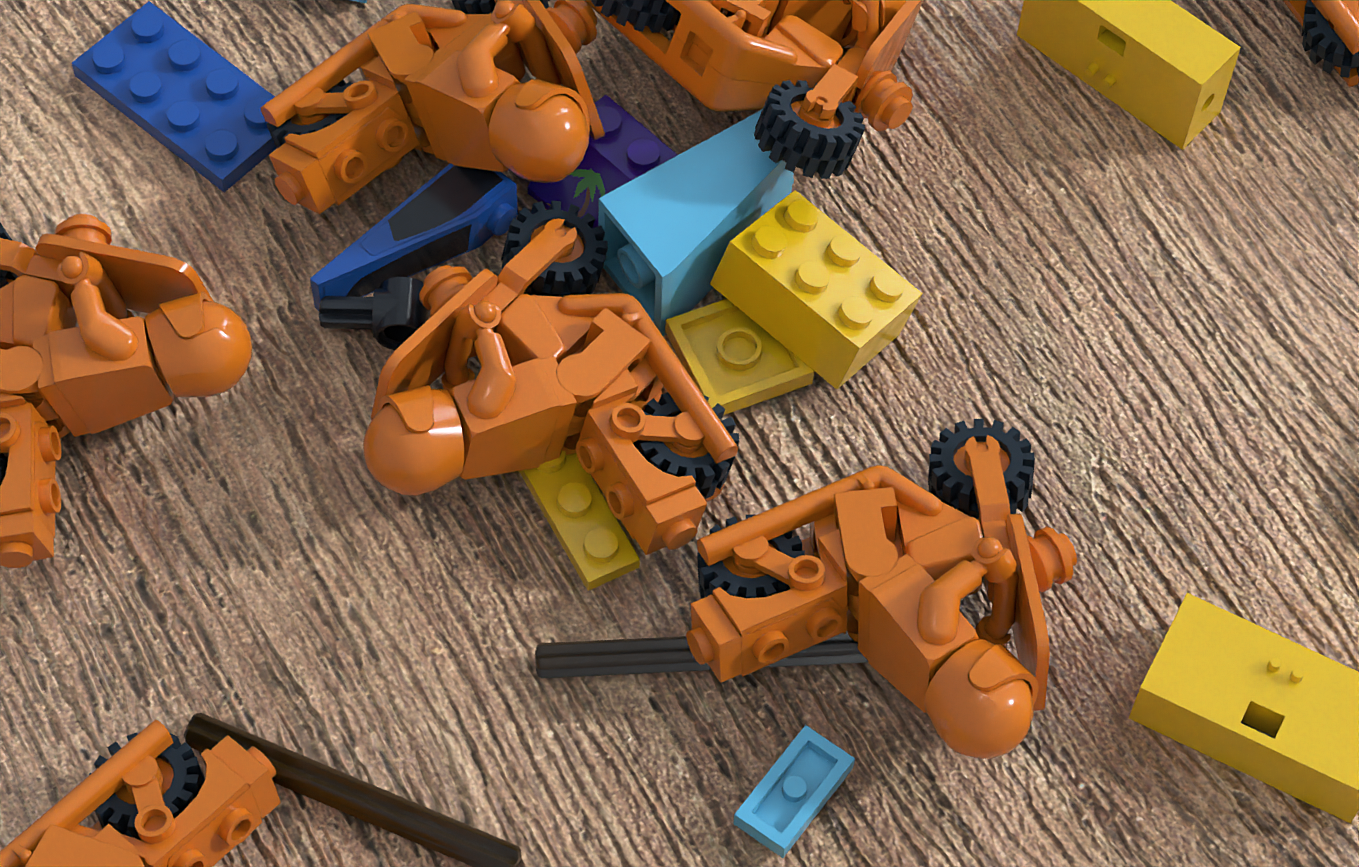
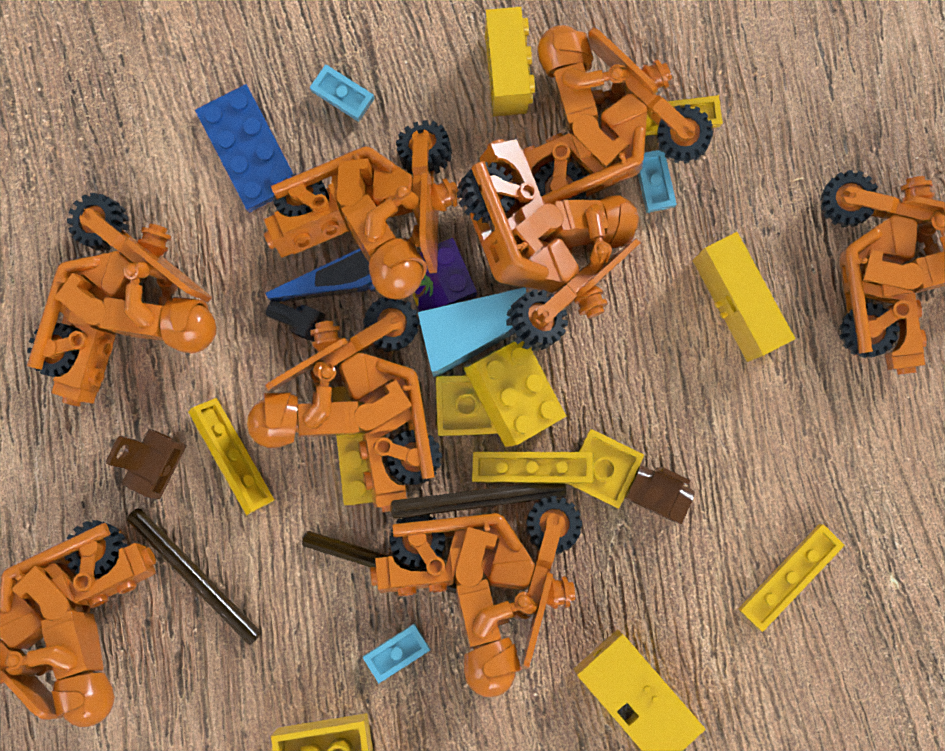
camera: 20 degrees right, 25 degrees up
(193, 620) = (148, 462): none -> reddish brown piece
(345, 563) = (231, 456): none -> yellow plate
(804, 477) = (475, 499): none -> dark brown axle
(901, 399) = (533, 467): none -> yellow plate
(1024, 371) = (613, 468): none -> yellow plate
(1138, 369) = (661, 493): none -> reddish brown piece

